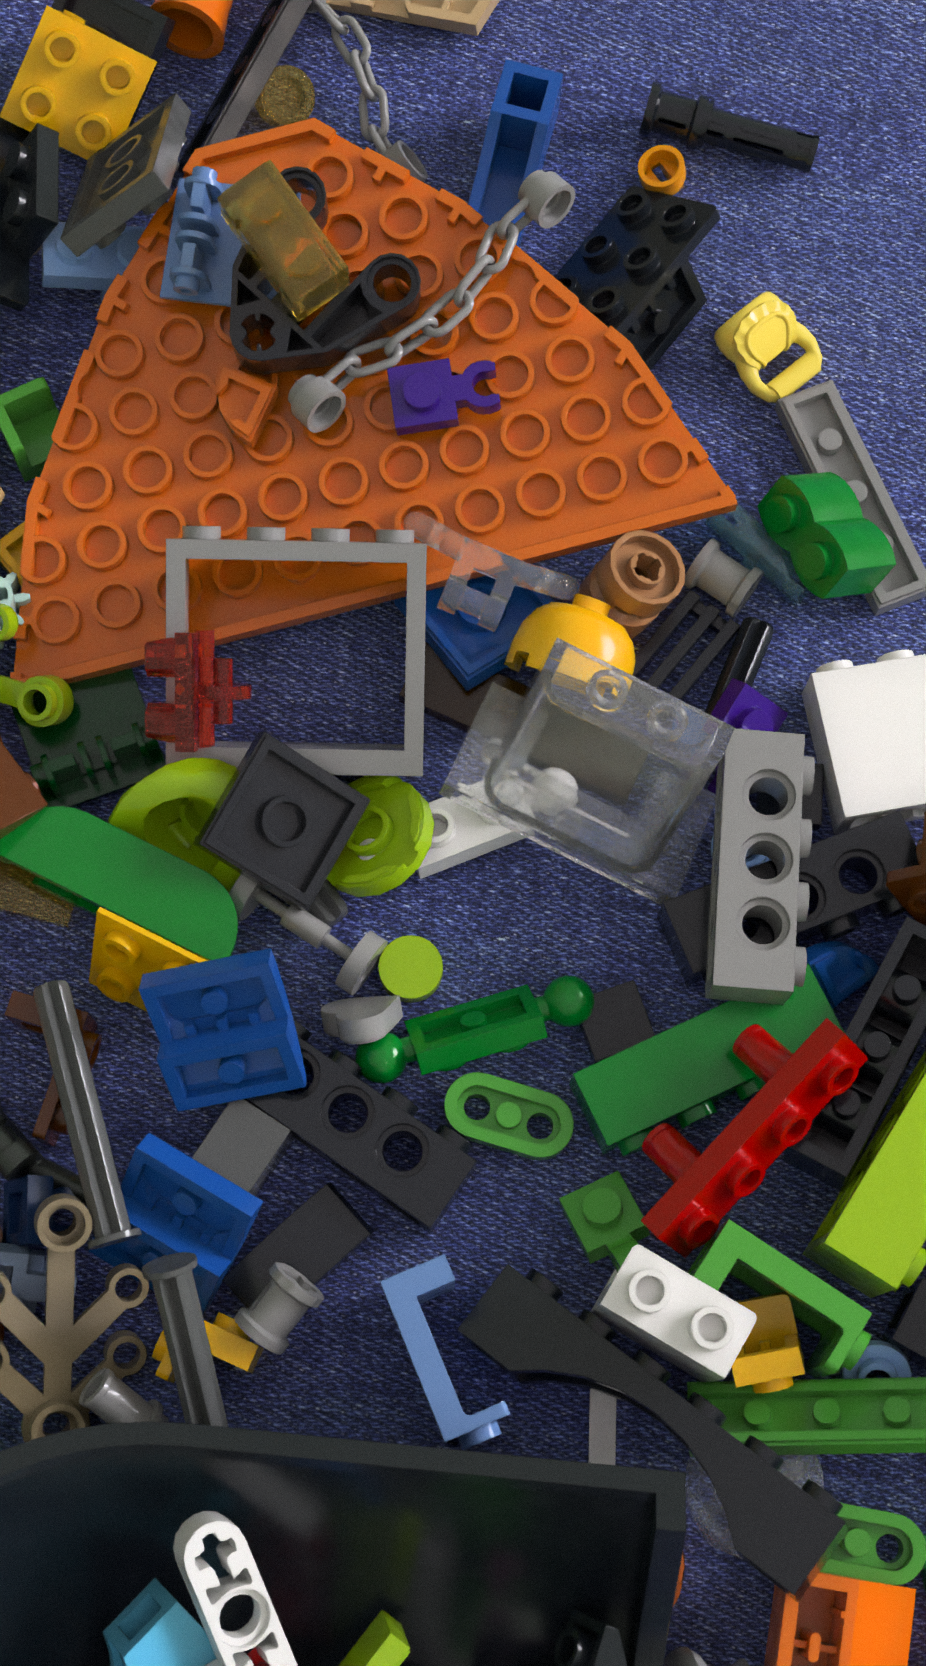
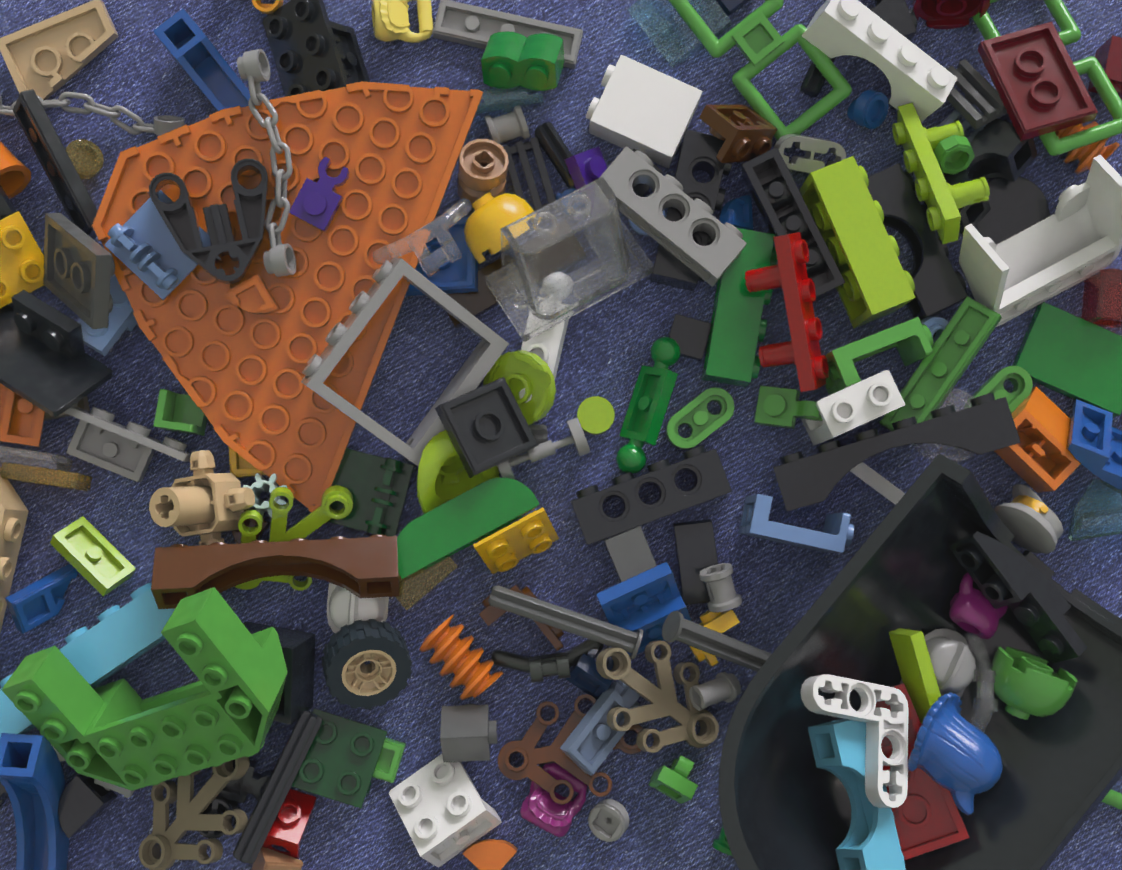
camera: 55 degrees left, 10 degrees up
(201, 690) = (403, 438): clear red hips -> none
(224, 1030) = (574, 525): blue slope -> none
(284, 240) = (191, 215): clear yellow brick -> none
(361, 1018) = (606, 455): light grey tile -> none
(773, 1347) = (903, 372): yellow bracket -> none

